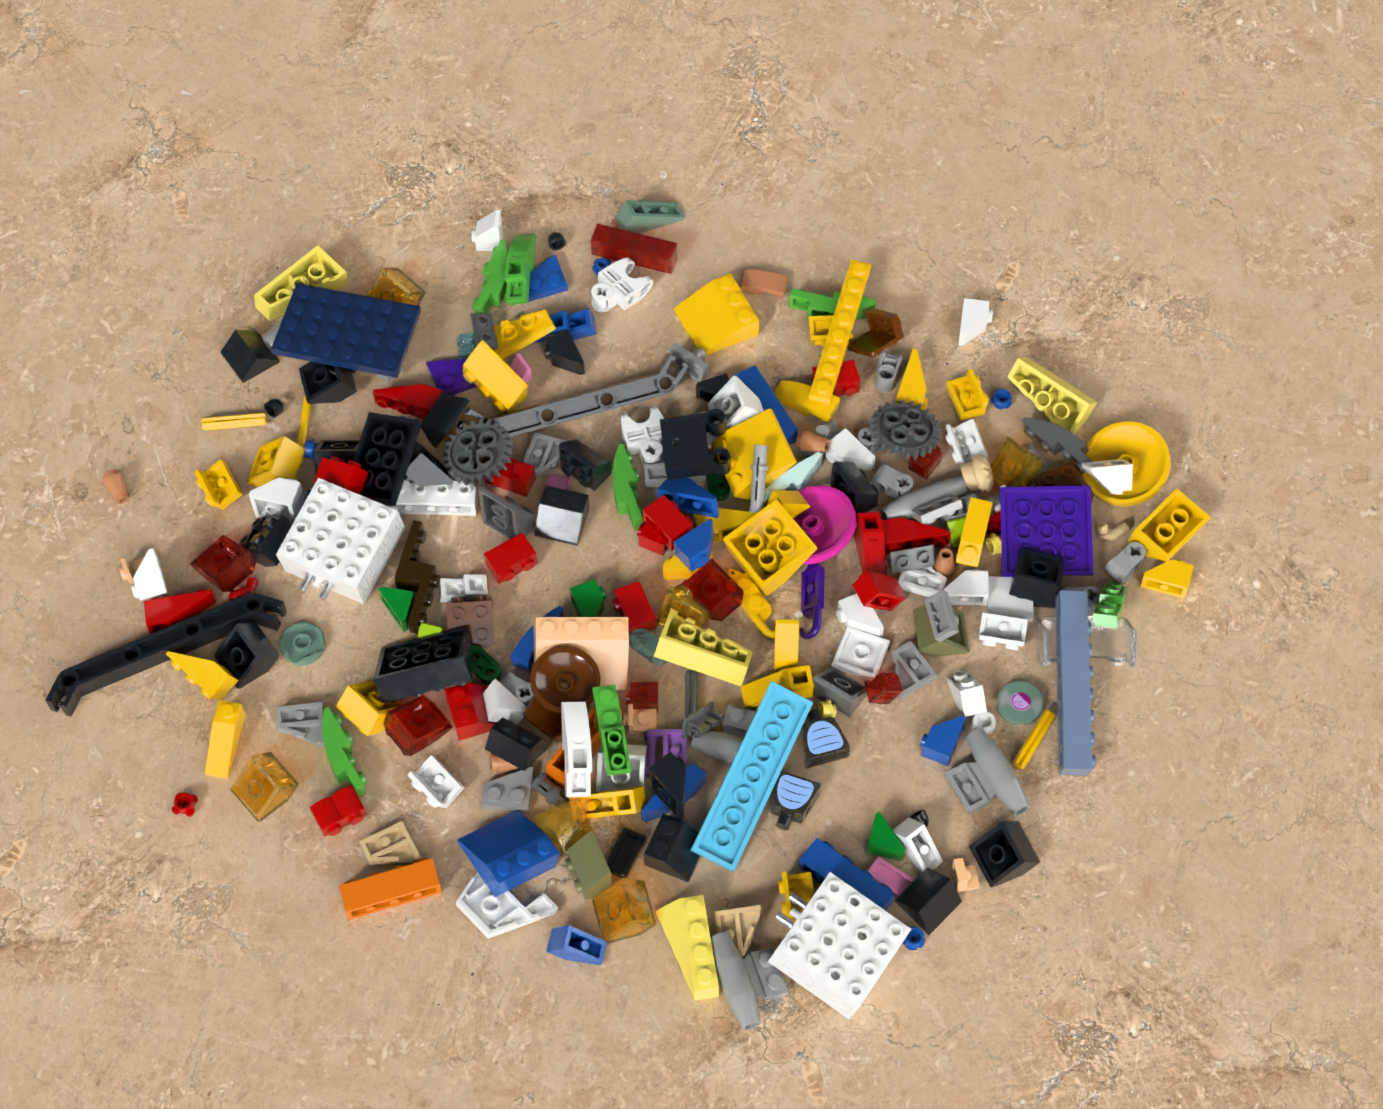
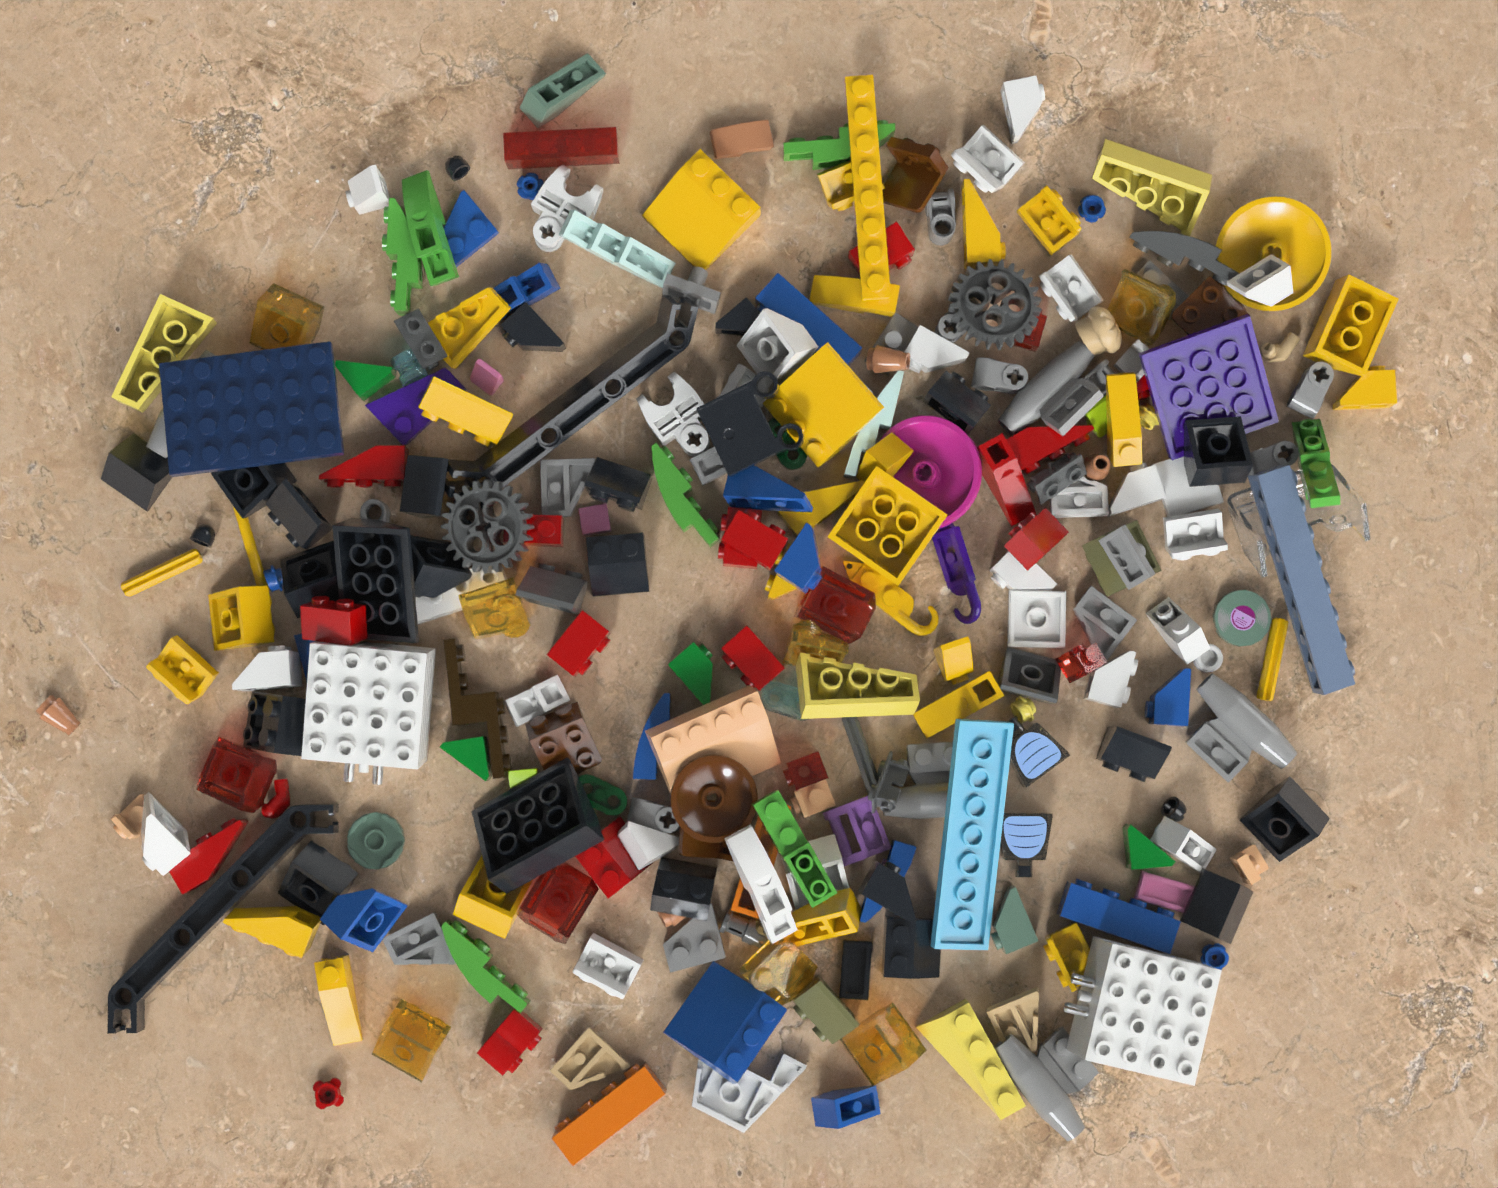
camera: 20 degrees left, 25 degrees up
(271, 680) = (363, 917): none -> blue slope
(346, 410) = (297, 514): none -> black slope
(435, 345) = (365, 378): none -> green slope
(458, 514) = (495, 610): none -> clear yellow slope
(646, 319) = (616, 248): none -> light aqua slope
(758, 478) = (845, 444): light grey pin -> none
(759, 858) = (1012, 924): none -> sand green slope
(900, 762) = (1132, 753): none -> black slope
(901, 709) = (1109, 682): none -> white slope
(935, 345) = (987, 160): none -> white bracket

